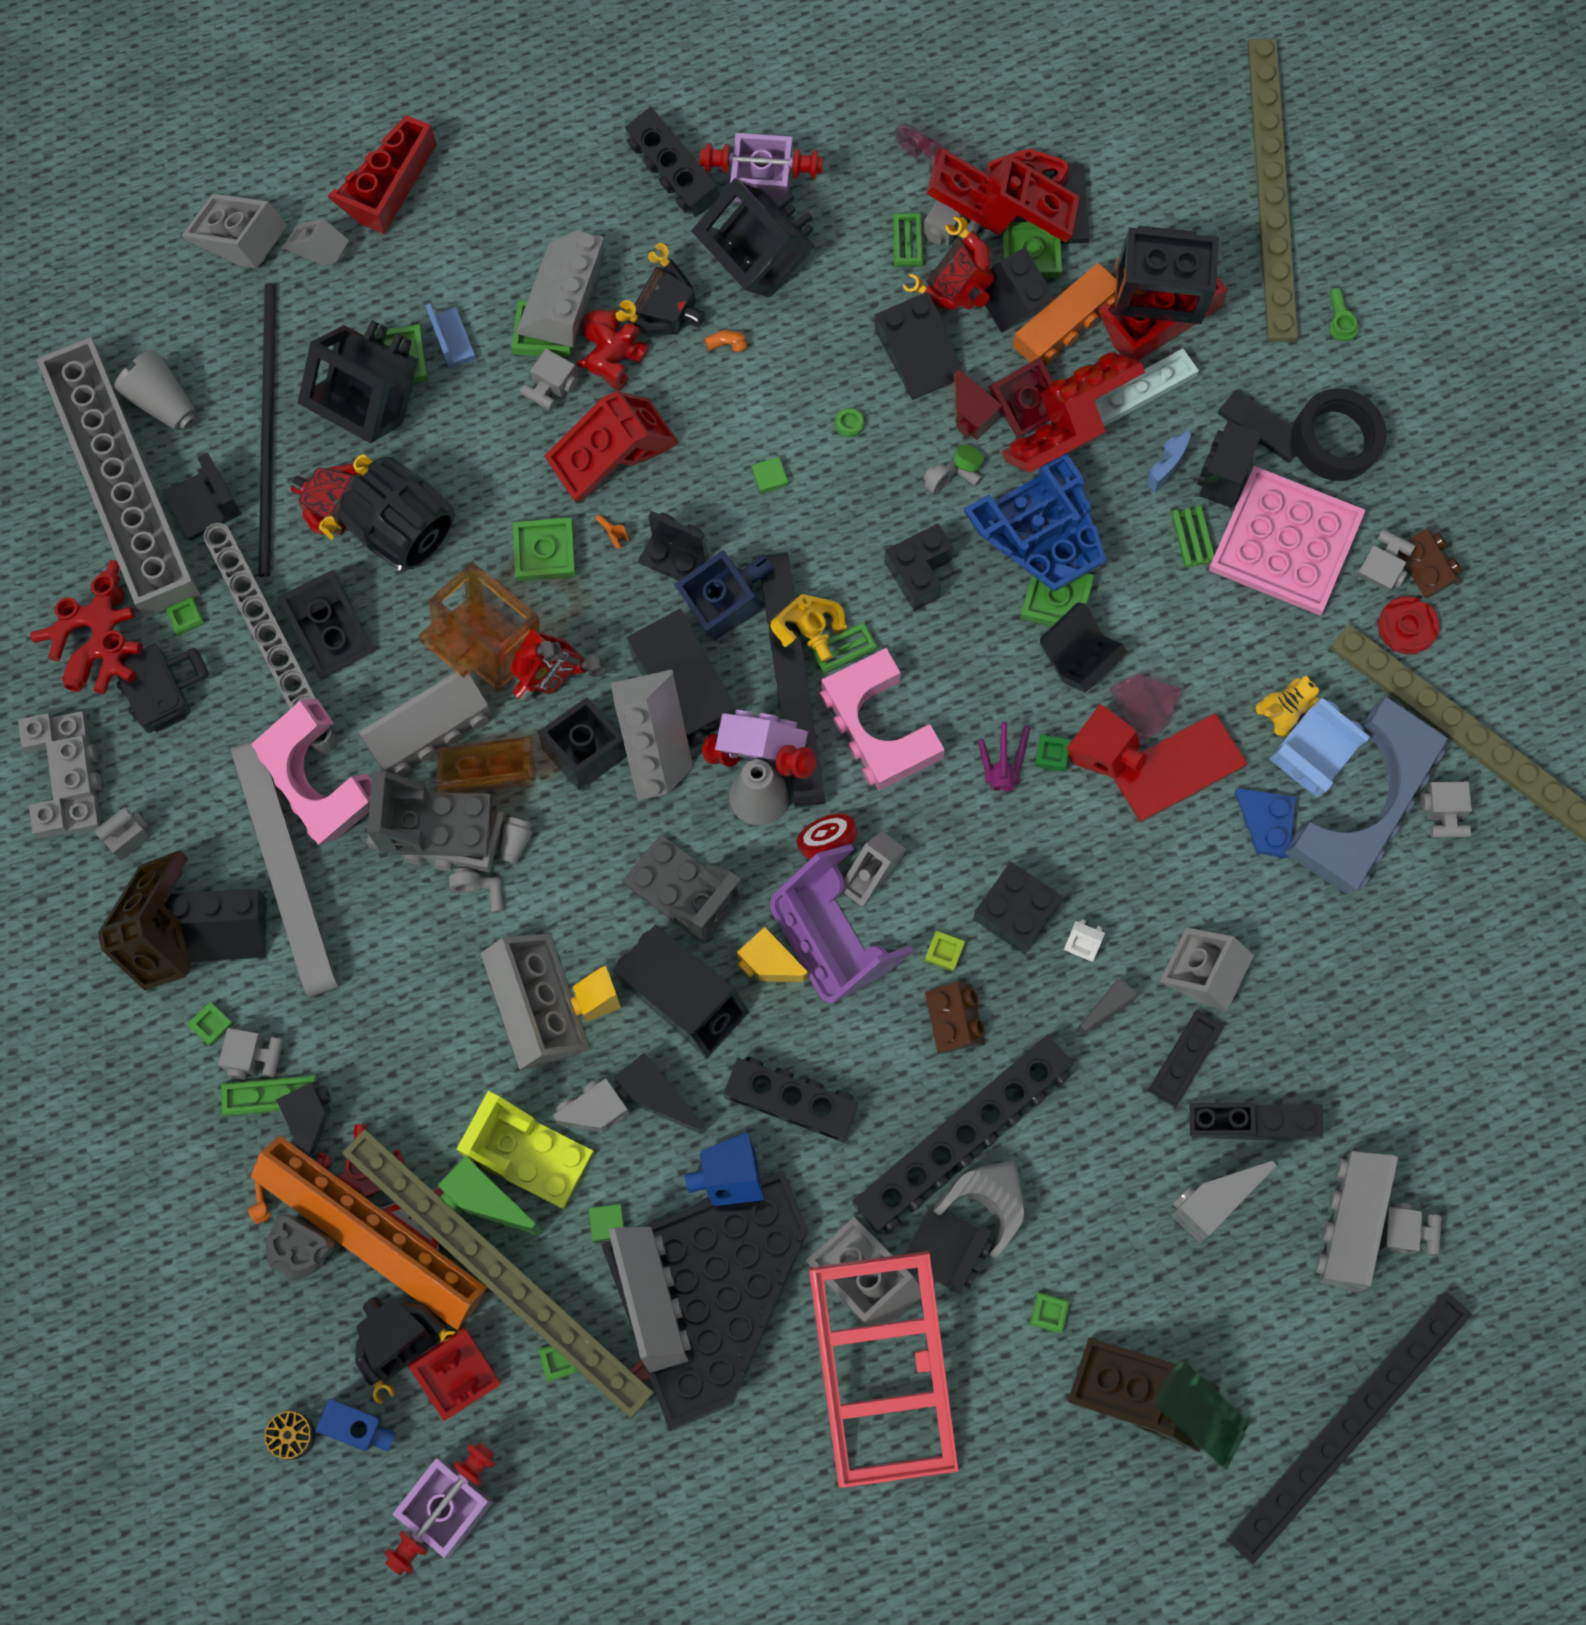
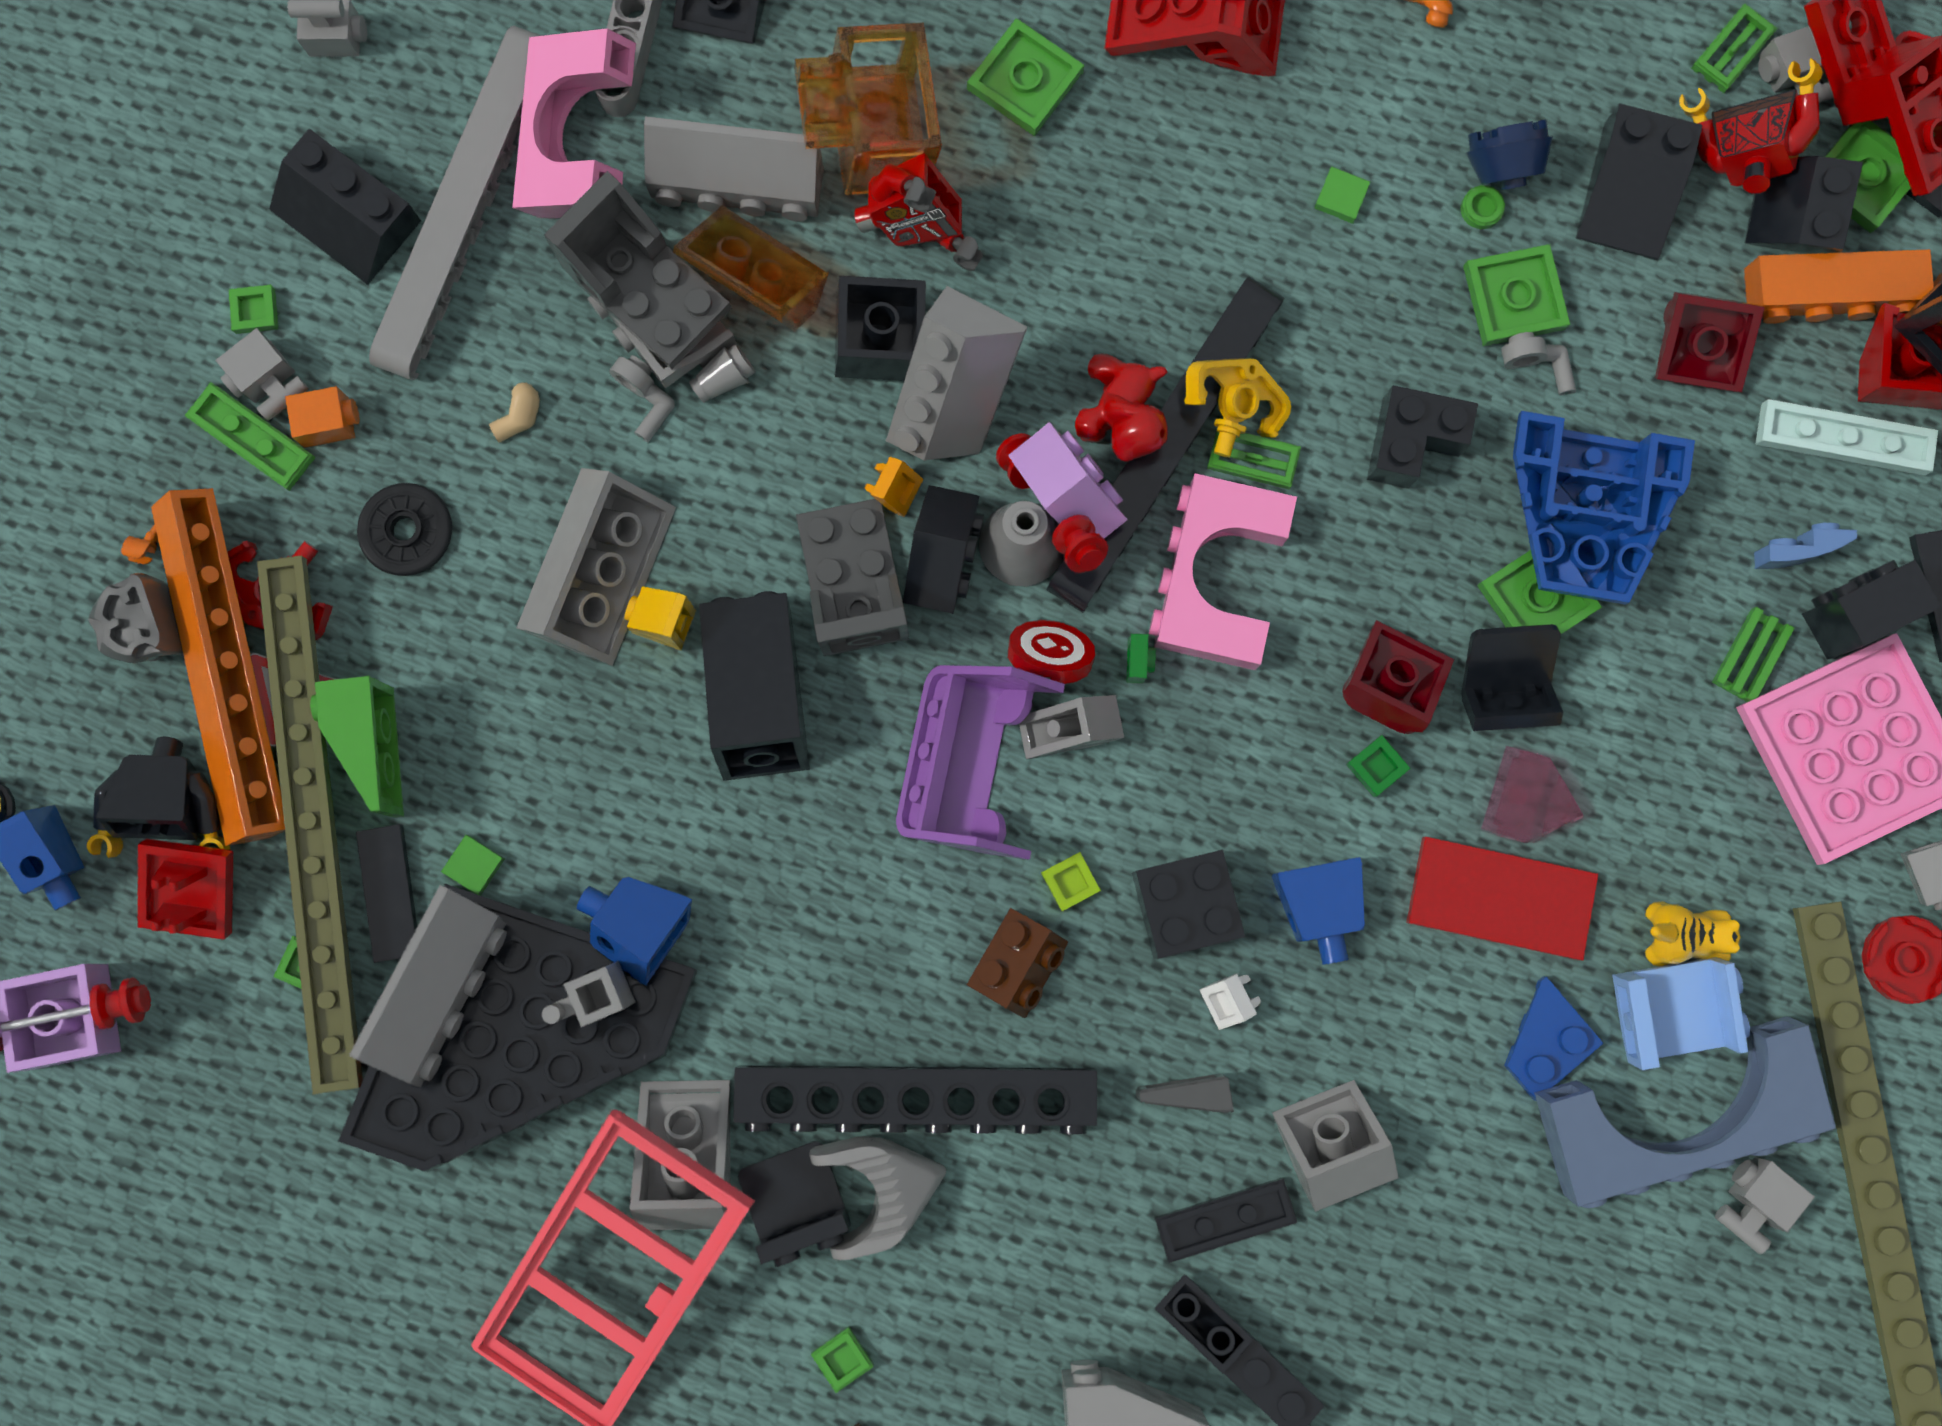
camera: 35 degrees right, 10 degrees up
(130, 939) = (232, 138): dark brown bracket -> none
(305, 1048) = (321, 416): none -> orange brick
(306, 1114) = (260, 489): black slope -> none
(414, 1090) = (426, 545): none -> black wheel
(418, 954) = (521, 415): none -> tan arm
(524, 1151) = (447, 707): neon yellow bracket -> none
(572, 1279) = (387, 890): none -> black tile
(594, 1110) = (558, 737): light grey slope -> none
(614, 532) = (1117, 120): orange hand -> none
(652, 1092) = (633, 768): black slope -> none
(664, 820) = (895, 486): none -> light orange tile
(673, 547) = (1164, 193): black bracket -> none
(674, 647) = (1059, 306): black slope -> none
(720, 830) = (940, 546): none -> black brick
(735, 585) = (1183, 306): dark blue brick -> none
(743, 1223) = (592, 996): none -> light grey brick
(745, 665) = (1122, 408): none -> red animal
(749, 1071) = (726, 848): black brick -> none
(769, 960) = (874, 732): yellow slope -> none
(840, 384) = (1510, 153): none -> dark blue cone
(877, 802) = (1140, 658): none -> green plate
(907, 453) = (1516, 294): none -> bright green plate
(968, 458) = (1579, 356): bright green tile -> none
(973, 407) = (1638, 303): dark red slope -> none
(1002, 773) = (1303, 743): magenta plant -> none
(1023, 700) = (1397, 680): none -> dark red slope
(1072, 411) = (1745, 400): red bracket -> none
(1088, 847) = (1324, 904): none -> blue torso
(1106, 745) = (1445, 809): red torso -> none

